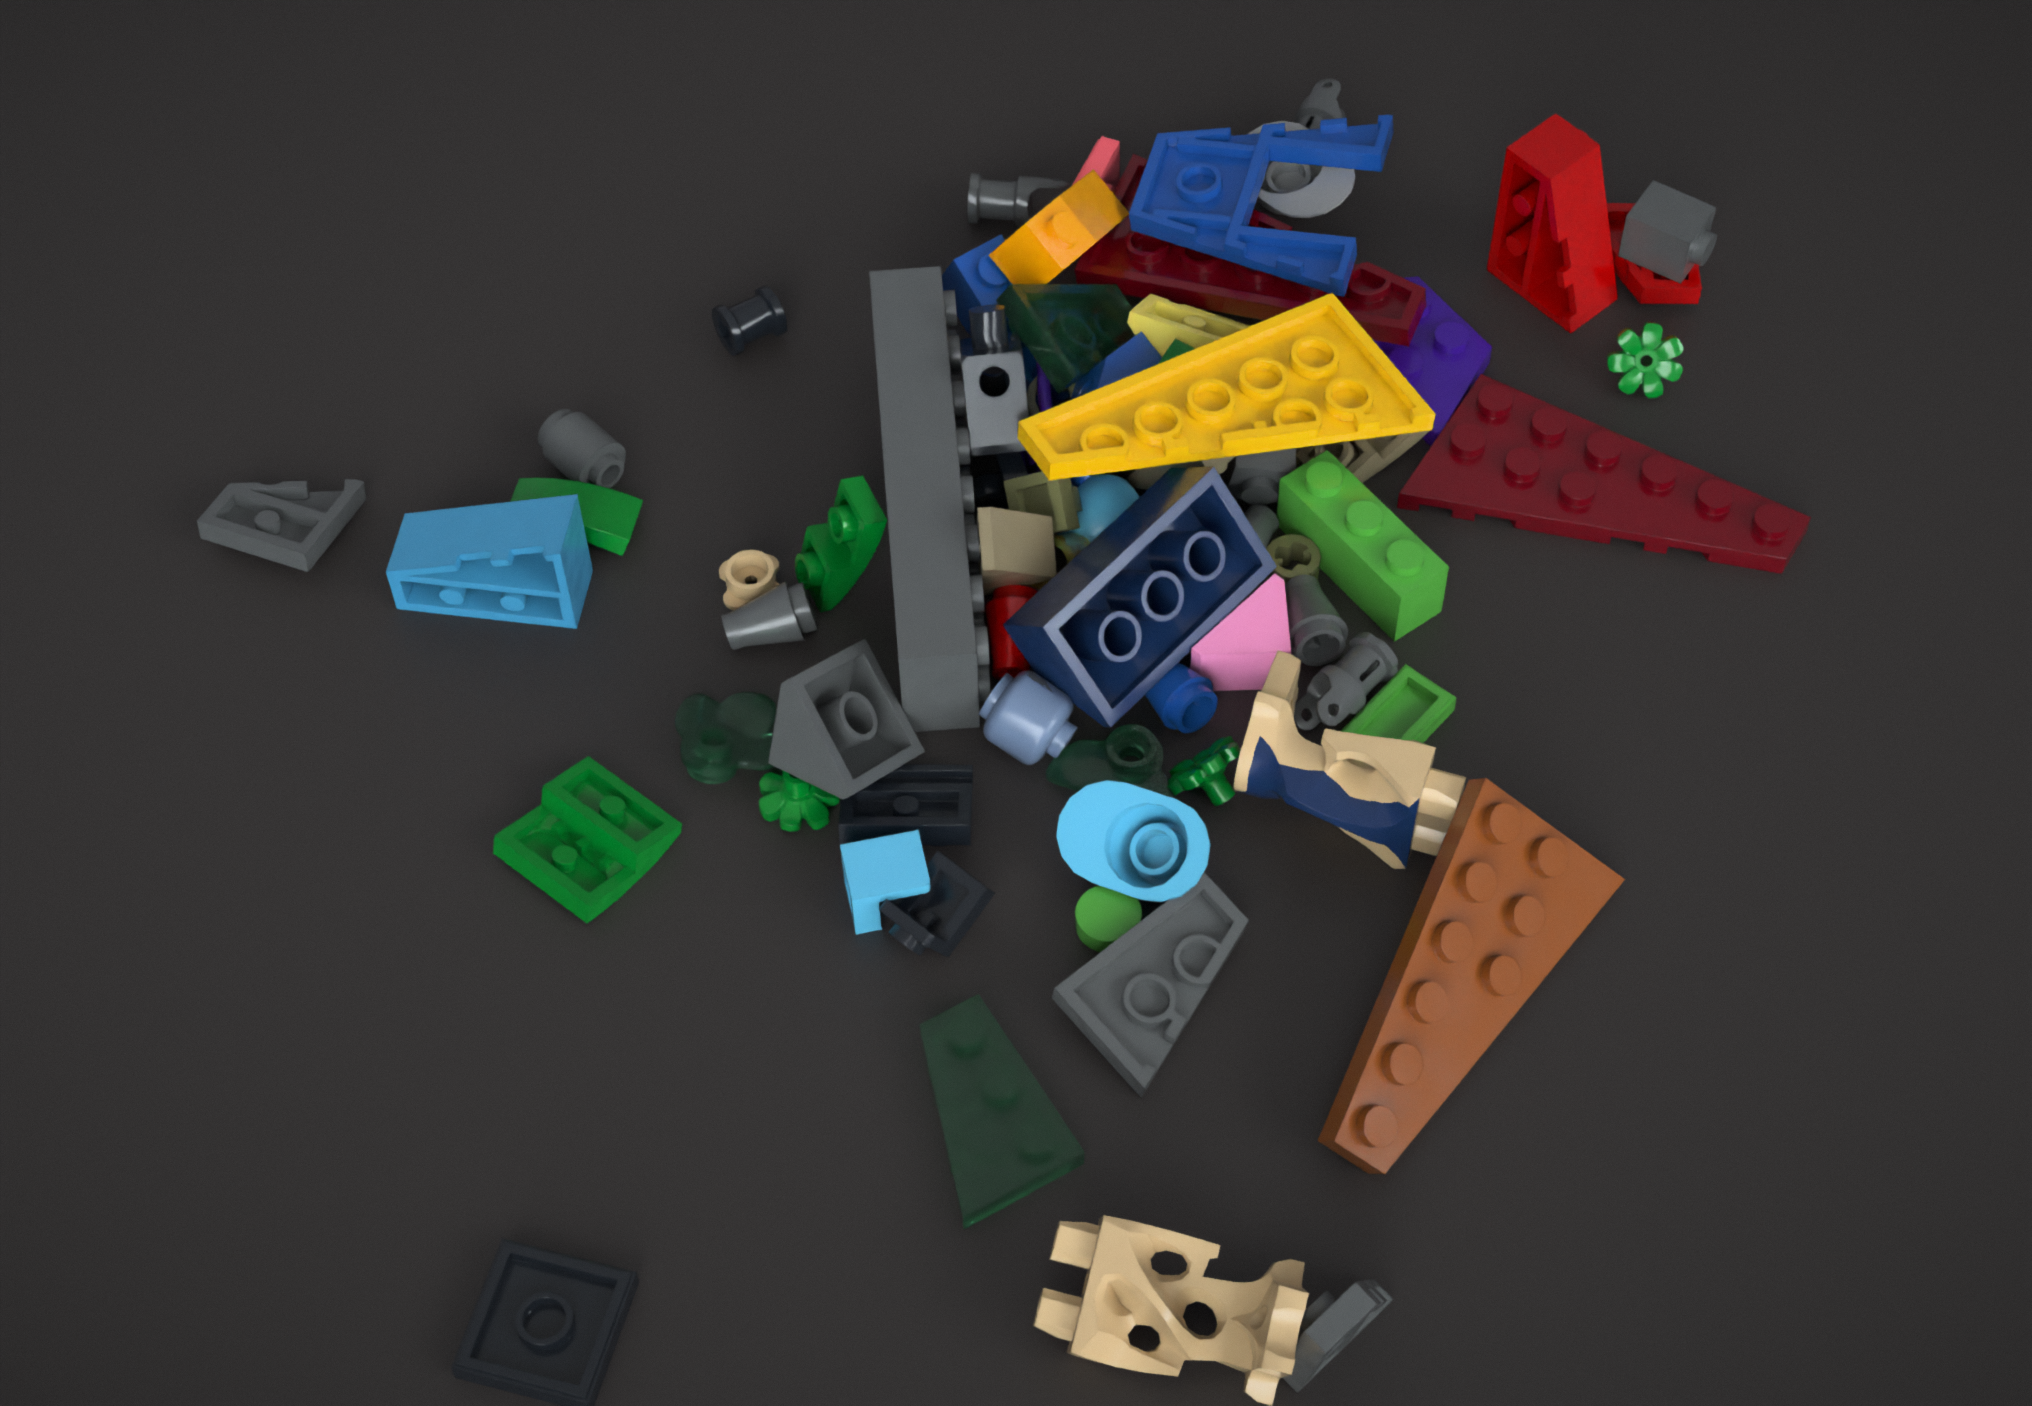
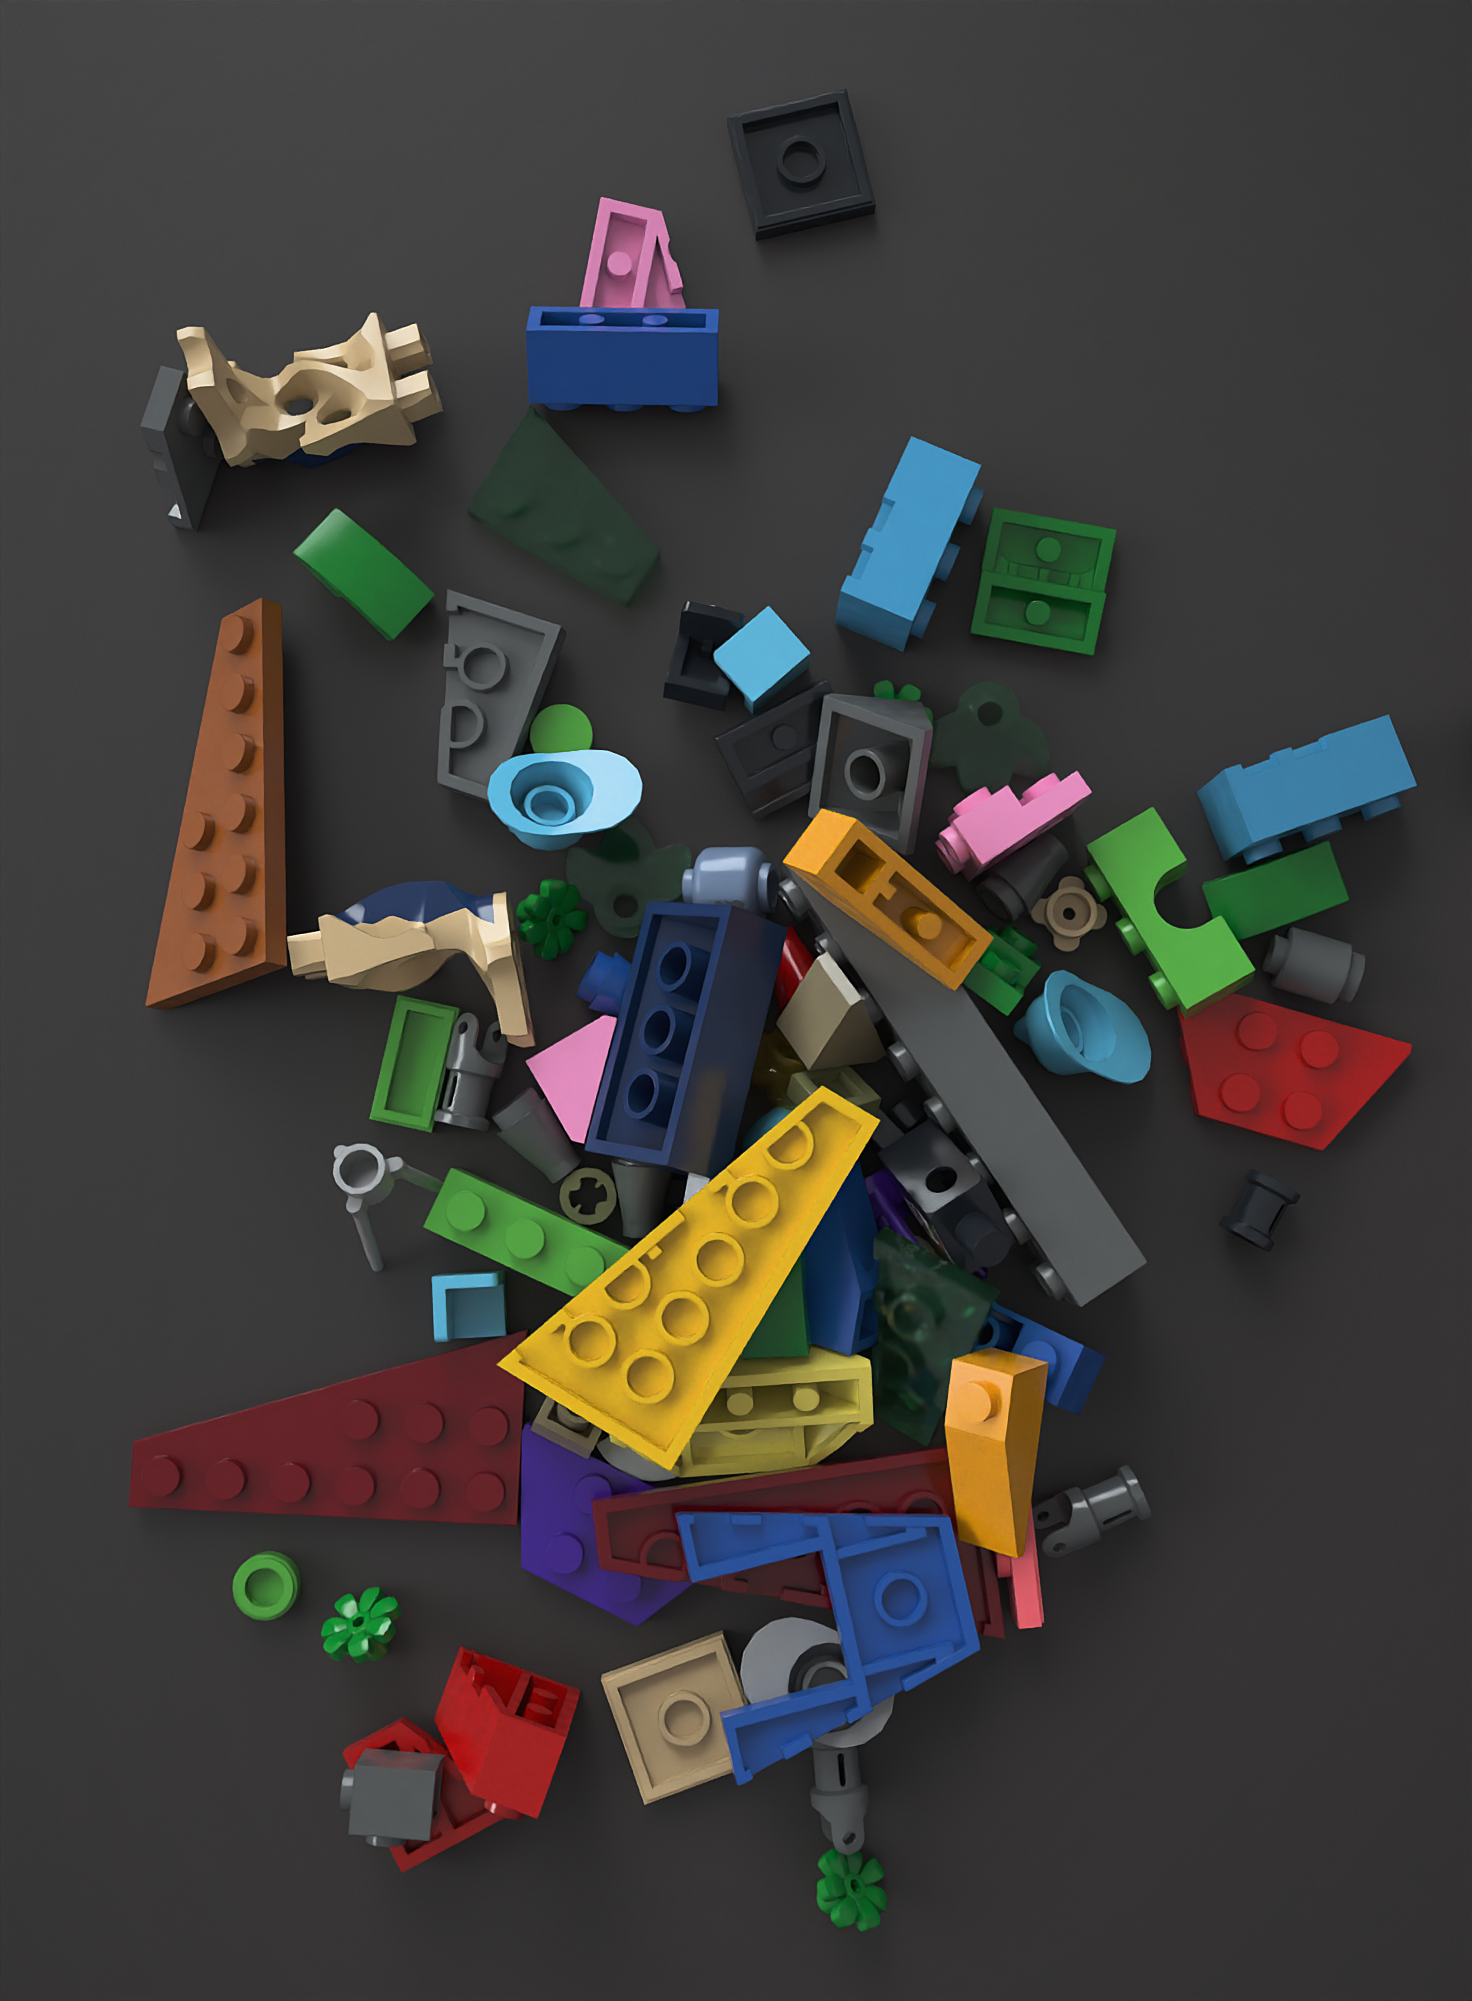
camera: 150 degrees right, 30 degrees up
(661, 410) = (1282, 1069): none -> red wing
(673, 570) = (1190, 964): none -> bright green arch
(692, 899) = (909, 545): none -> dark azure wedge
(754, 631) = (997, 825): none -> bright pink plate
(787, 1289) = (631, 260): none -> bright pink wing
(797, 479) = (1084, 1030): none -> medium azure piece
(845, 1197) = (623, 357): none -> blue brick
(912, 572) = (887, 896): none -> light orange slope
(1221, 1138) = (363, 573): none -> green slope
(1346, 65) = (850, 1890): none -> green plant
(1413, 218) = (672, 1716): none -> tan tile
(1444, 528) = (469, 1305): none -> medium azure panel
(1478, 612) = (367, 1181): none -> light grey plant
(1714, 427) = (267, 1585): none -> bright green tile

